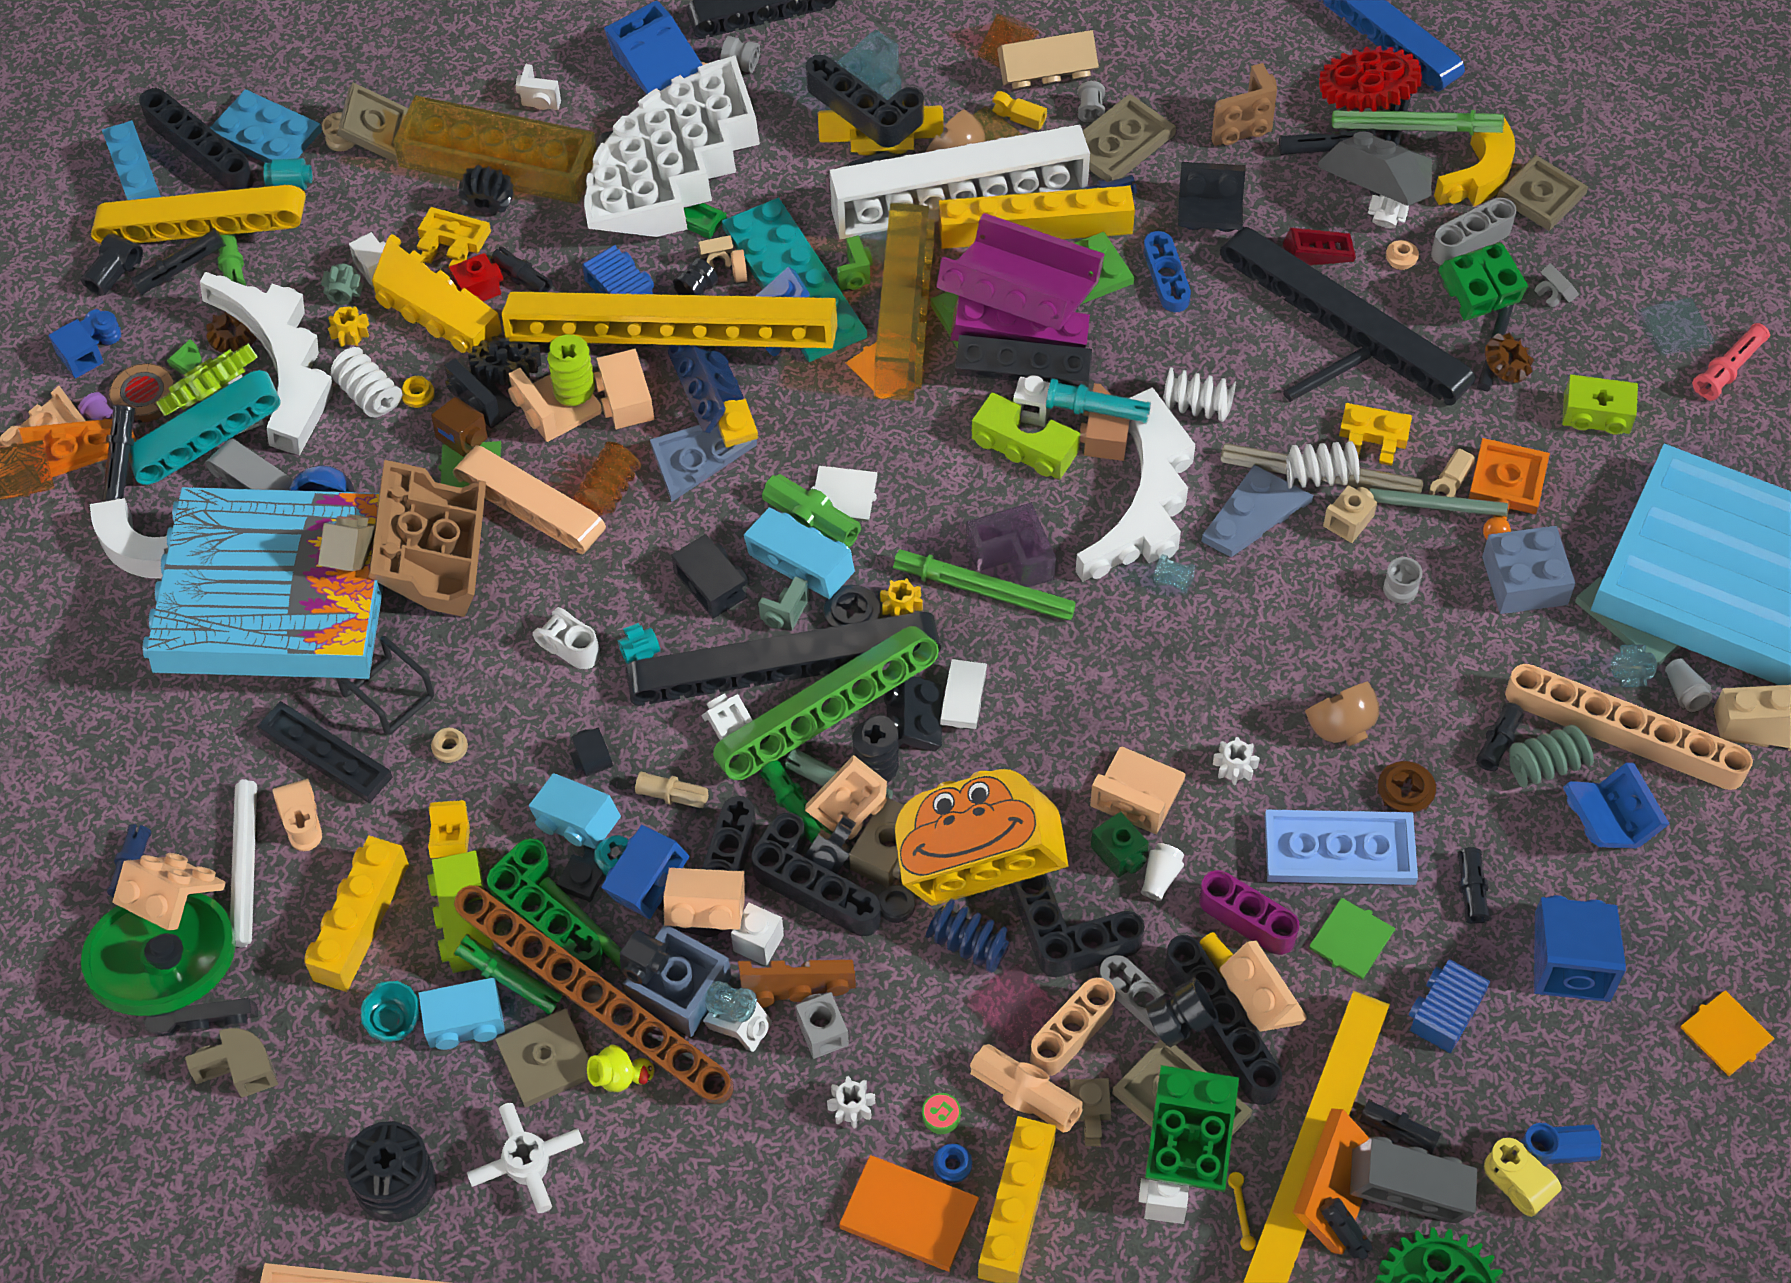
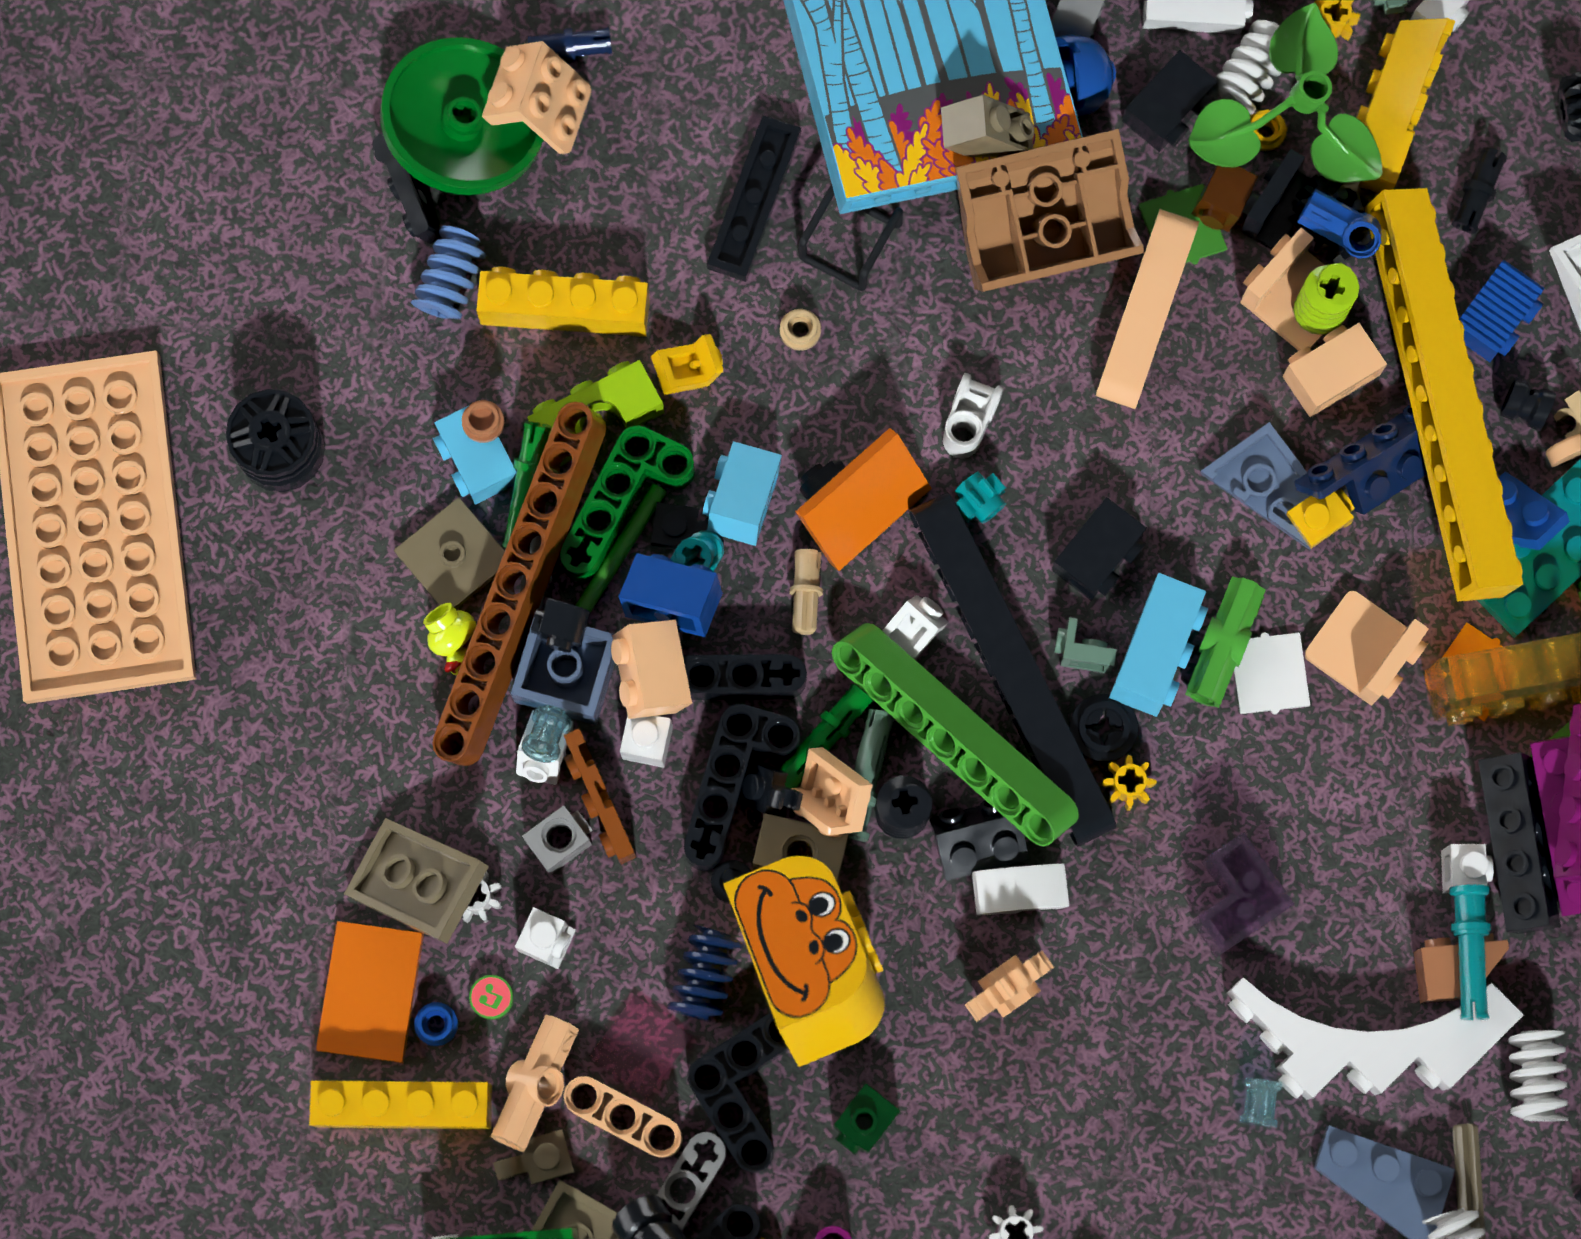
camera: 75 degrees right, 20 degrees up
(164, 951) = (453, 121): black plate -> none
(239, 1054) = (372, 248): dark tan brick -> none
(243, 861) = (601, 162): white axle -> none
(293, 998) = (448, 273): none -> medium blue piece
(299, 814) = (674, 194): light nougat piece -> none
(368, 442) = (1170, 102): none -> black brick
(370, 338) = (1308, 49): none -> bright green plant
(383, 1008) = (457, 369): teal hair -> none
(440, 989) = (483, 421): none -> nougat plate
(451, 229) = (1517, 89): yellow plate -> none
(477, 277) = (1447, 141): red brick -> none
(517, 345) = (1337, 221): none -> blue piece
(520, 1145) = (316, 560): white bar -> none
(607, 479) = (1199, 390): clear orange piece -> none
(612, 723) = (863, 499): none -> orange tile
(825, 1140) = (416, 880): none -> dark tan plate
(848, 422) = (1365, 647): none -> light nougat bracket
(902, 1053) = (545, 938): none -> white brick
(984, 585) = (1181, 875): bright green axle -> none
(1041, 710) = (1009, 986): none -> light nougat gear
(1046, 451) = (1397, 907): lime arch -> none
(1137, 788) = (949, 1124): light nougat bracket -> none
(1161, 870) = (847, 1175): white cone -> none

